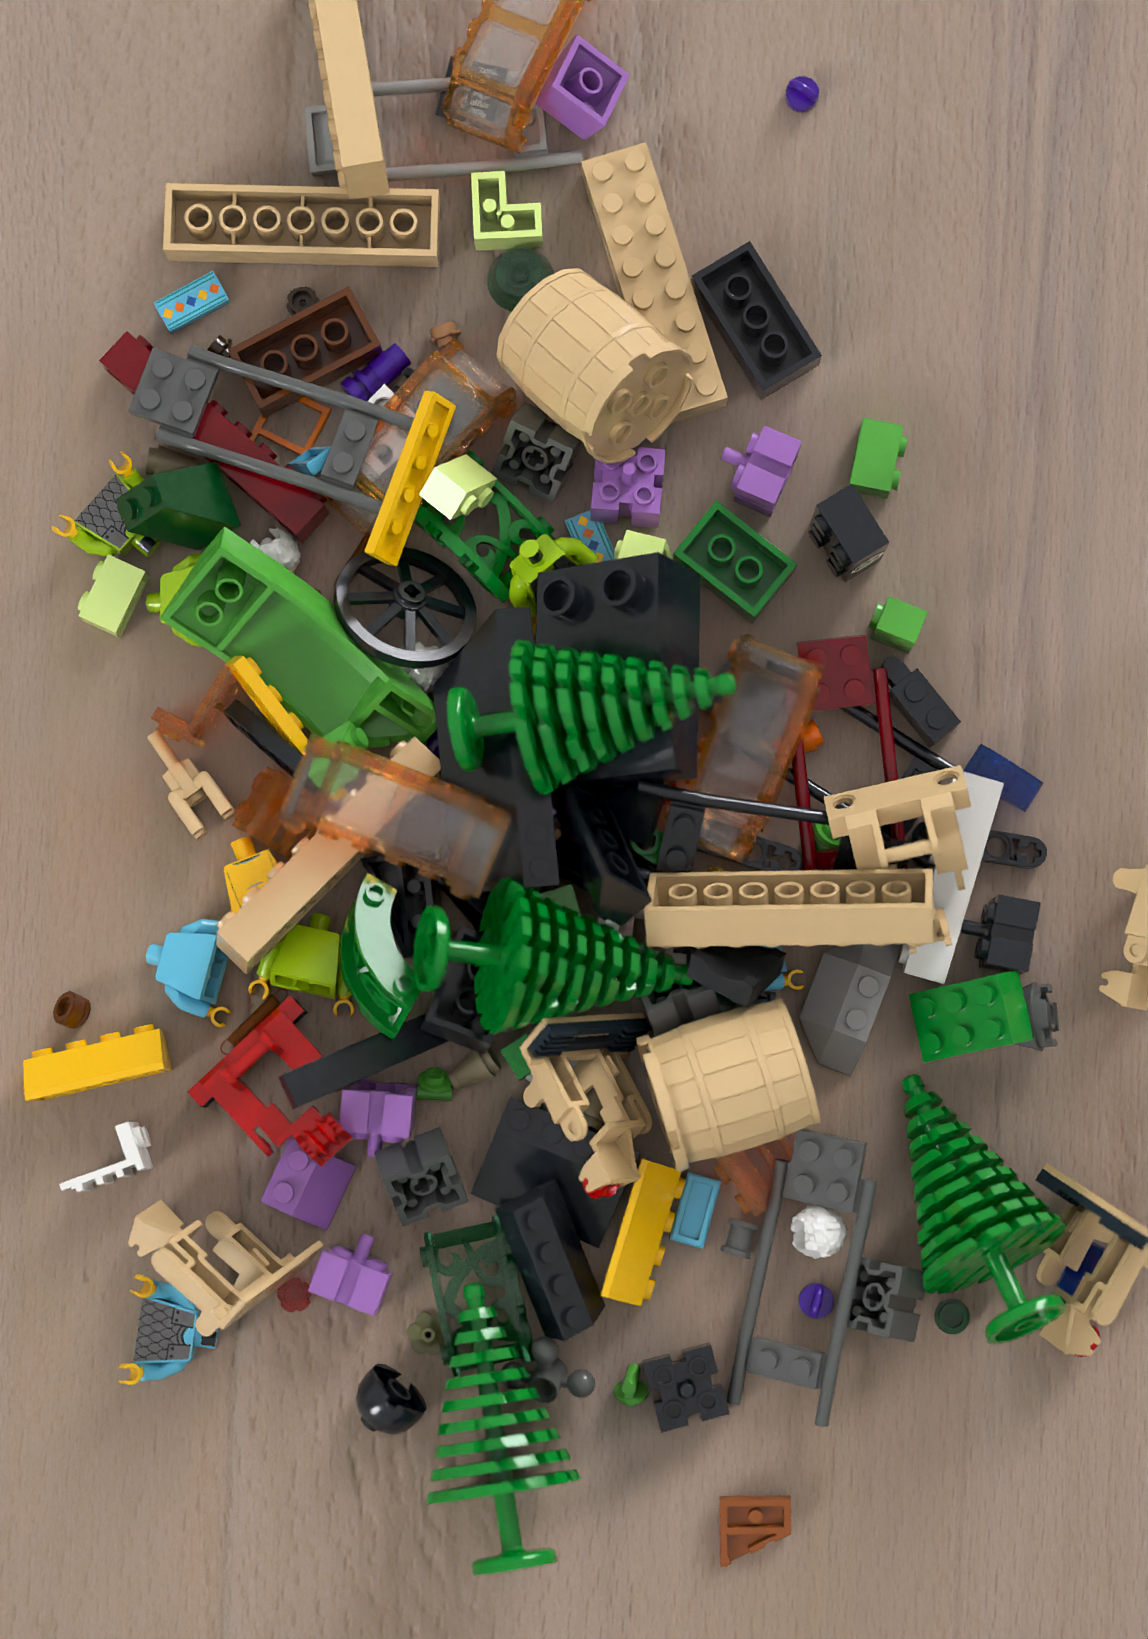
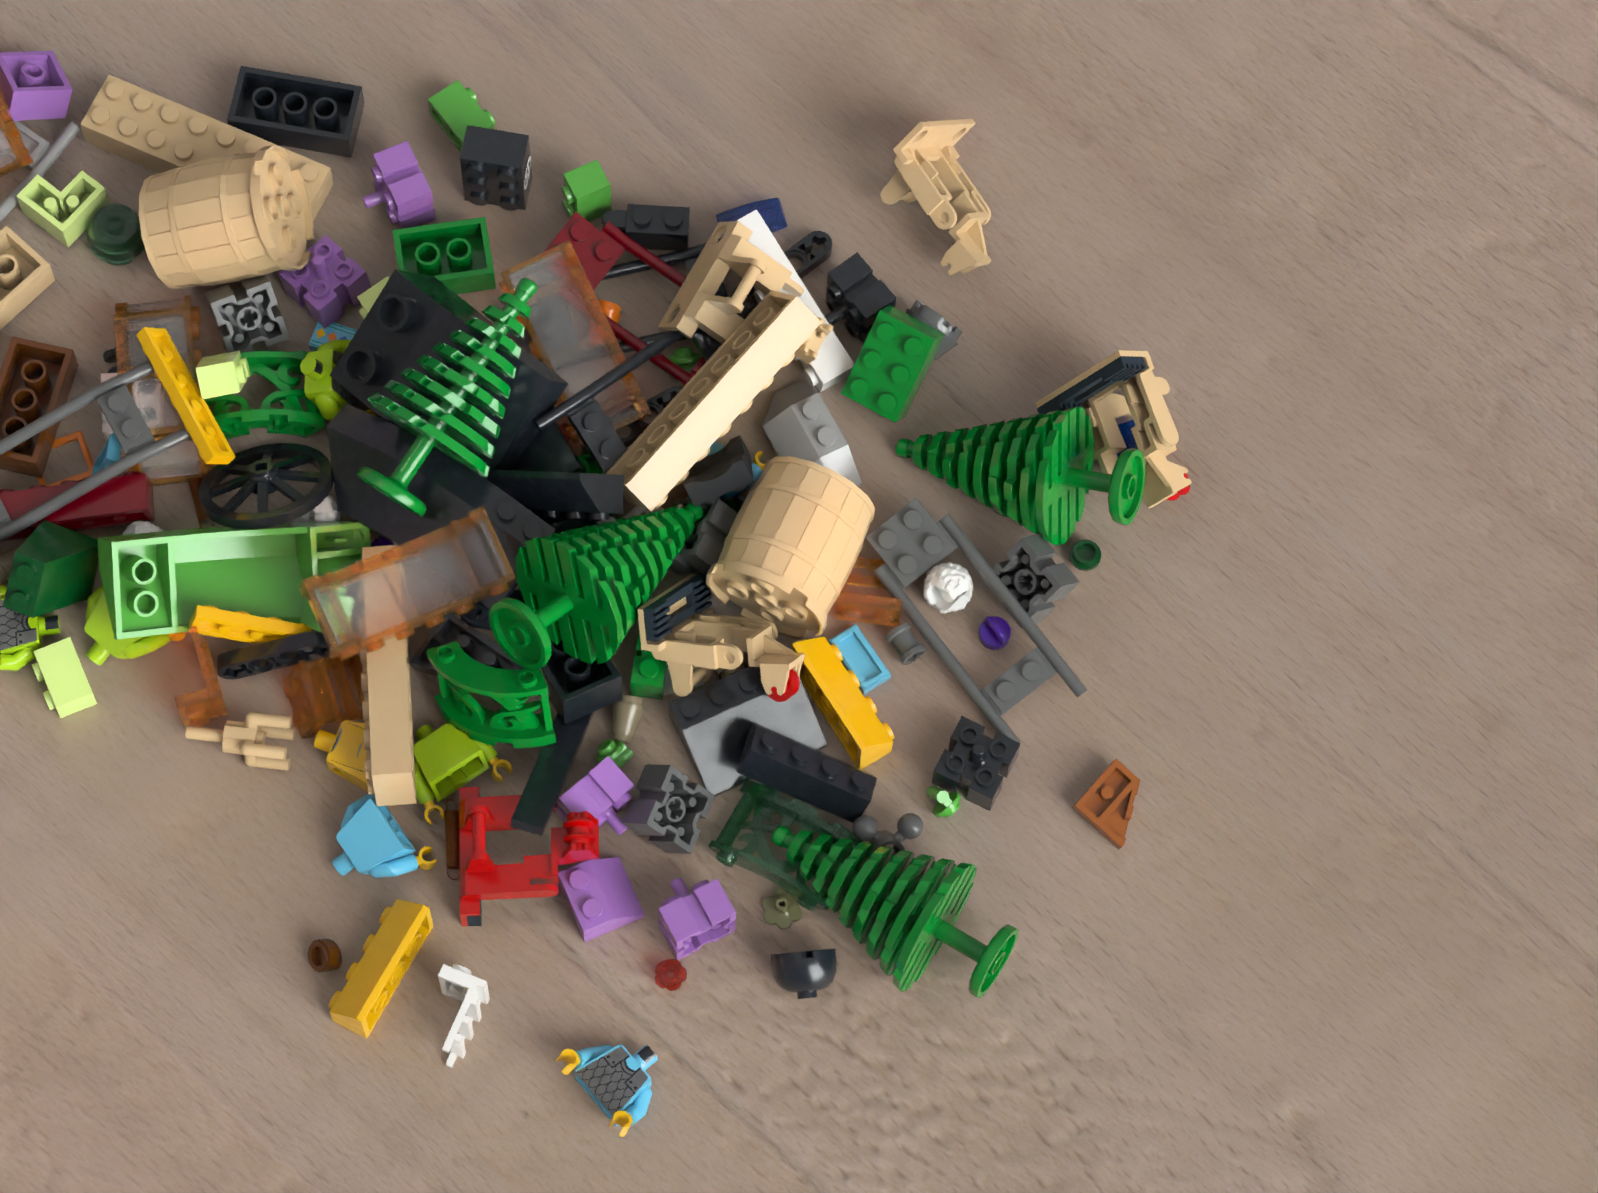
camera: 55 degrees left, 15 degrees down
(187, 1270) = (597, 996): tan container -> none
(379, 371) = (88, 374): dark purple axle -> none
(444, 333) = (104, 313): medium nougat plate -> none

